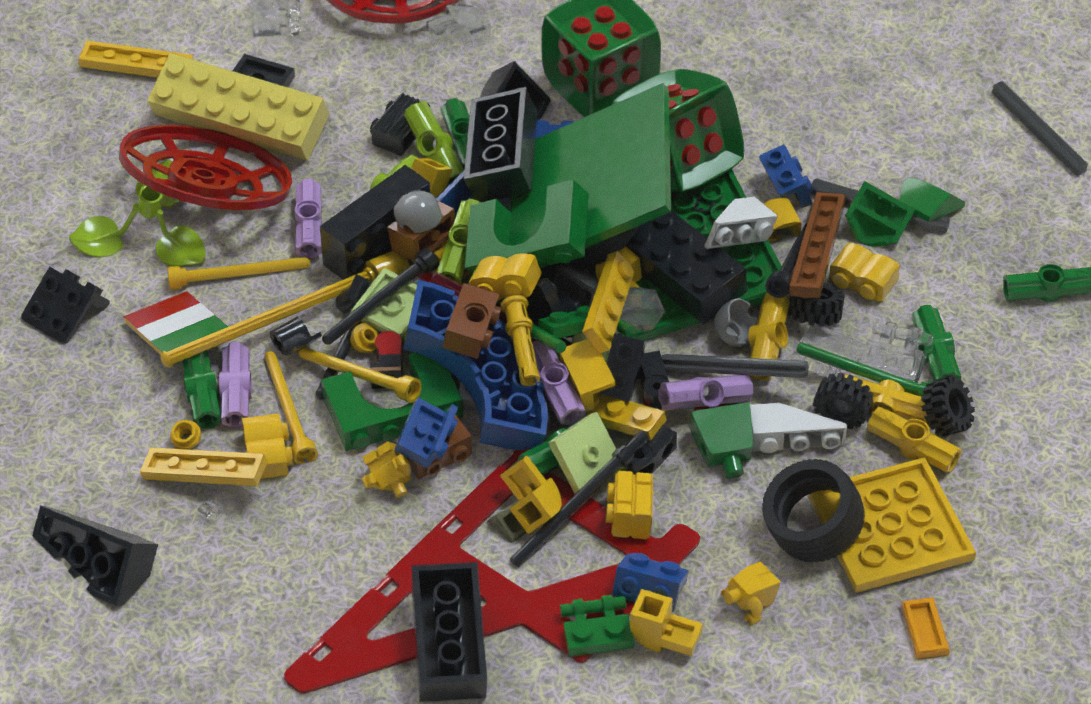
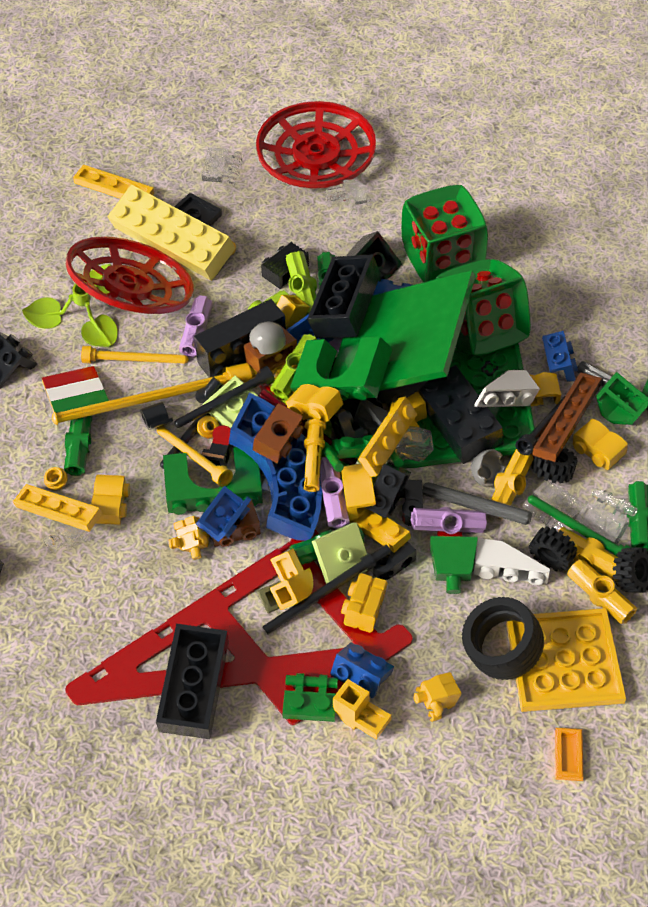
camera: 15 degrees right, 5 degrees up
(235, 384) = (103, 445): lavender piece -> none
(302, 446) = (136, 503): yellow piece -> none

